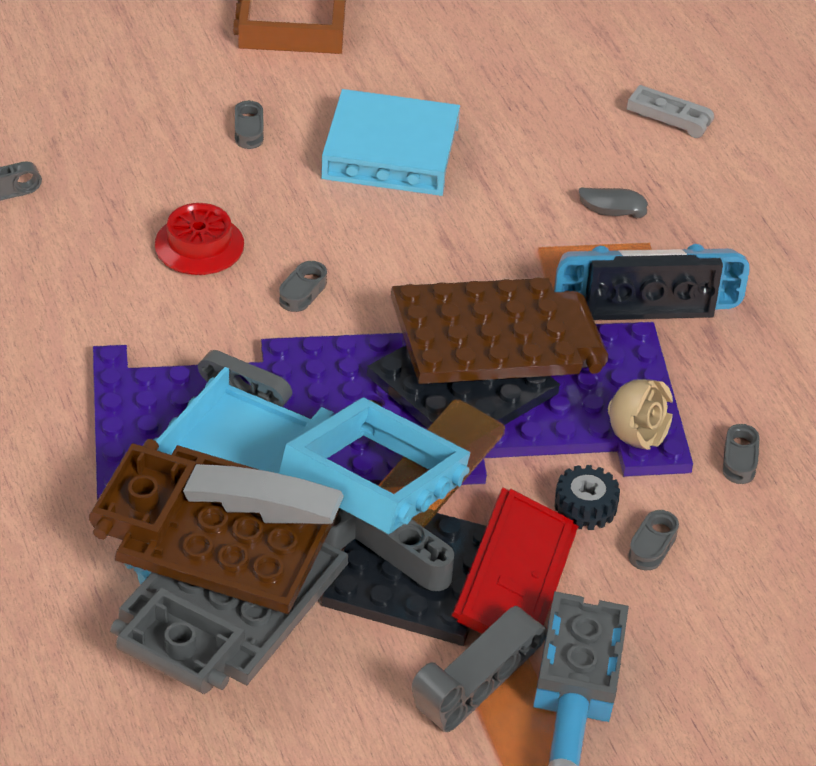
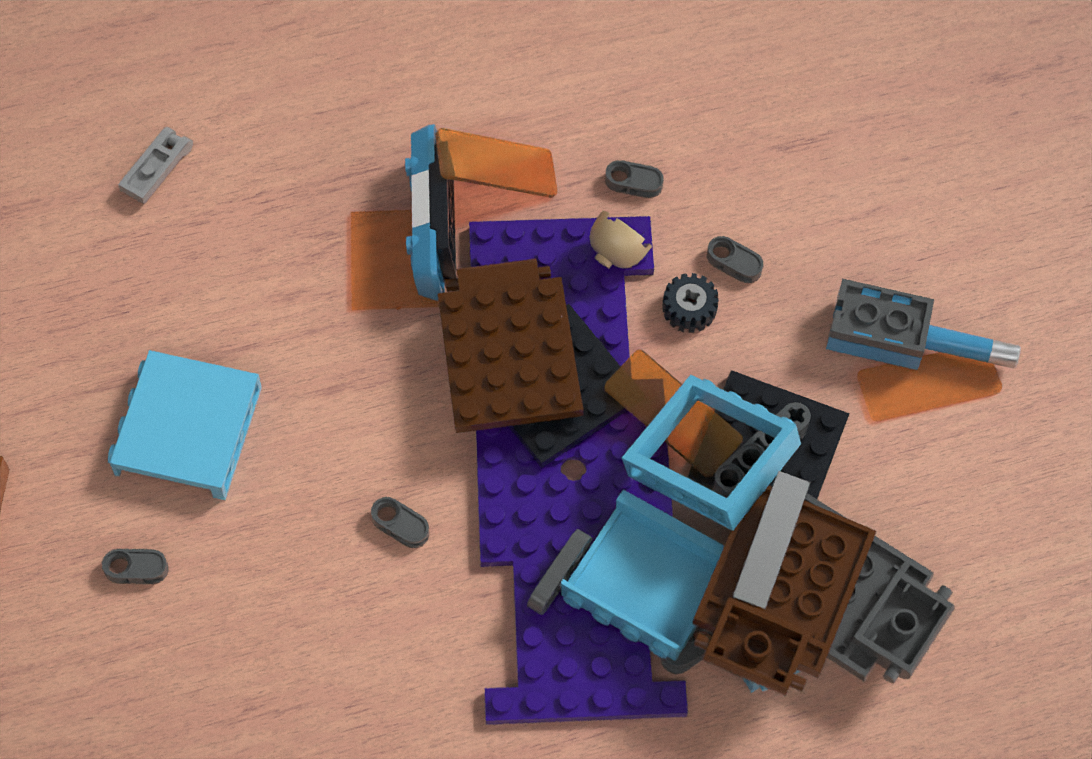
camera: 85 degrees left, 20 degrees up
(199, 240) = (332, 638): red piece -> none
(457, 691) = (898, 401): dark grey beam -> none
(515, 562) = (778, 365): red piece -> none
(614, 201) = (292, 232): dark grey arm -> none
(719, 322) = (495, 163): none -> clear orange piece

